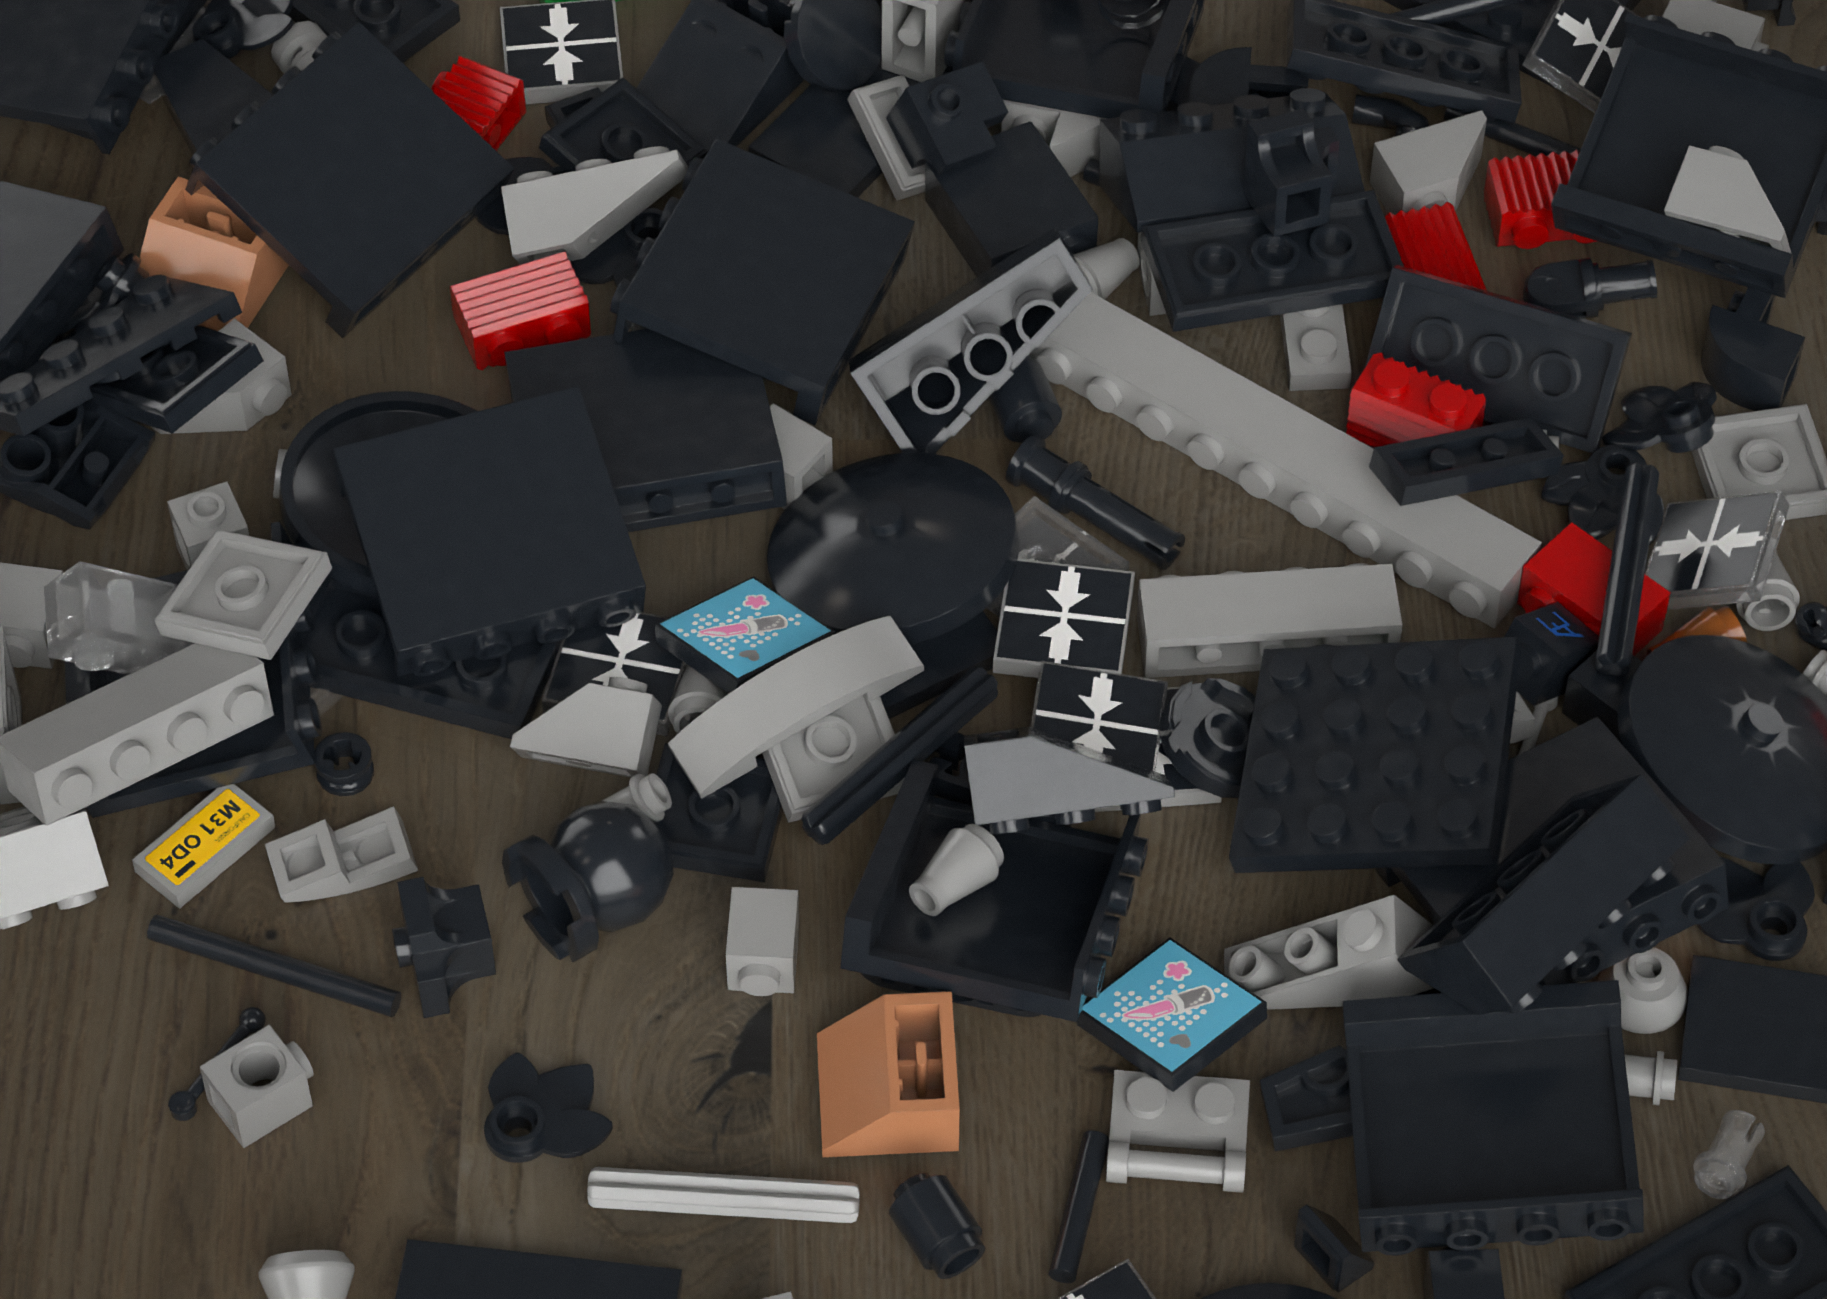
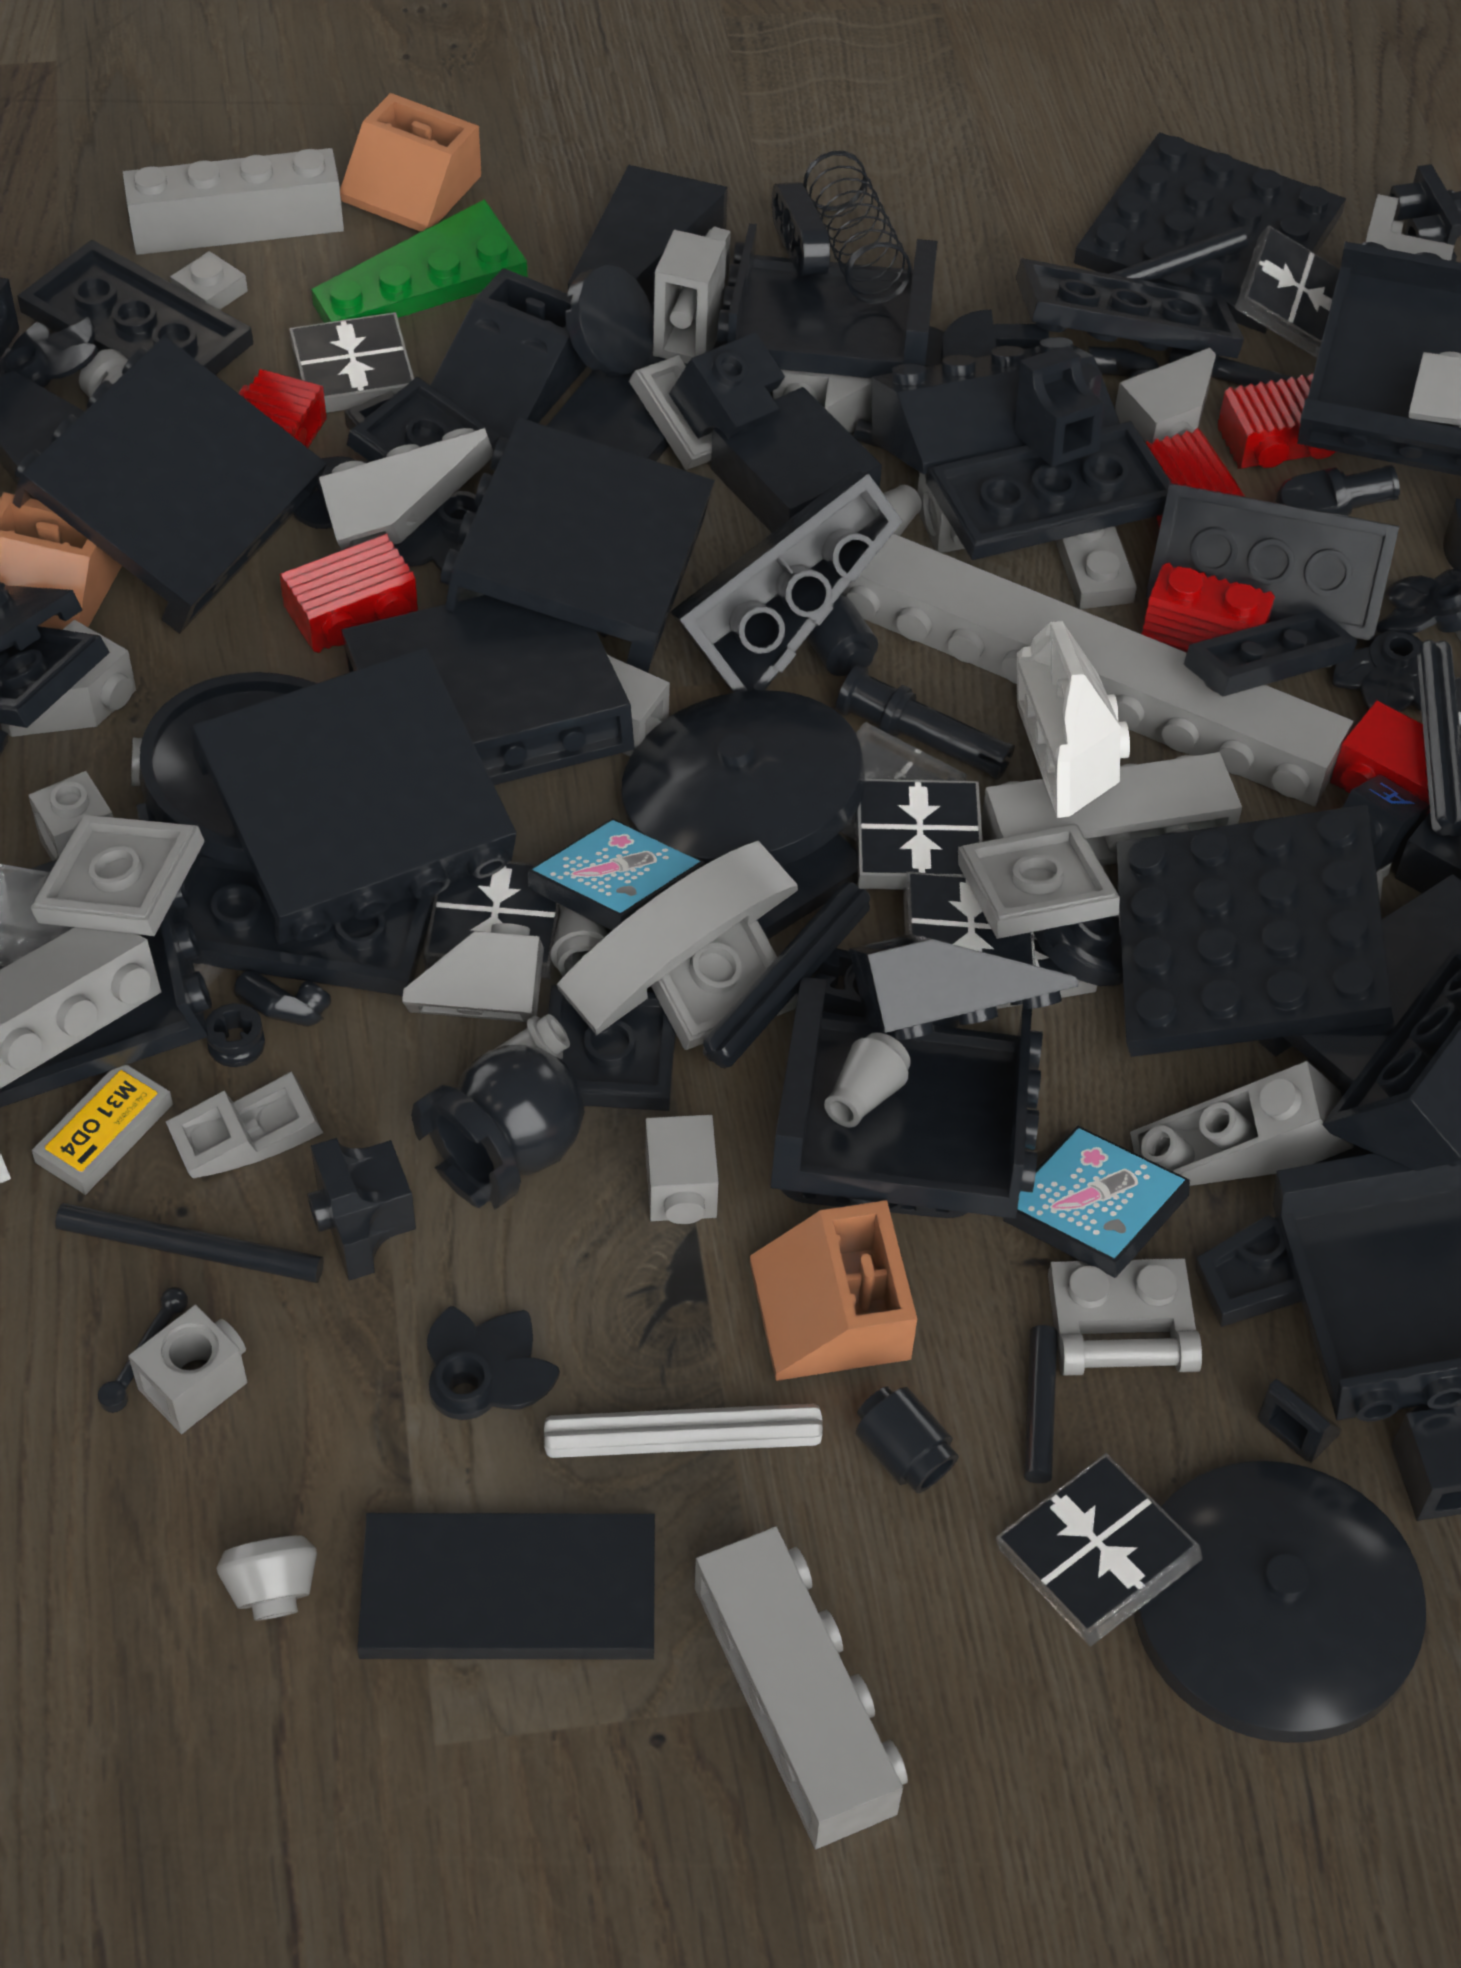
camera: 10 degrees left, 0 degrees up
(390, 737) = (278, 1004): none -> black arm
(1169, 683) = (1038, 881): none -> light grey tile
(1240, 519) = (1069, 720): none -> white wedge

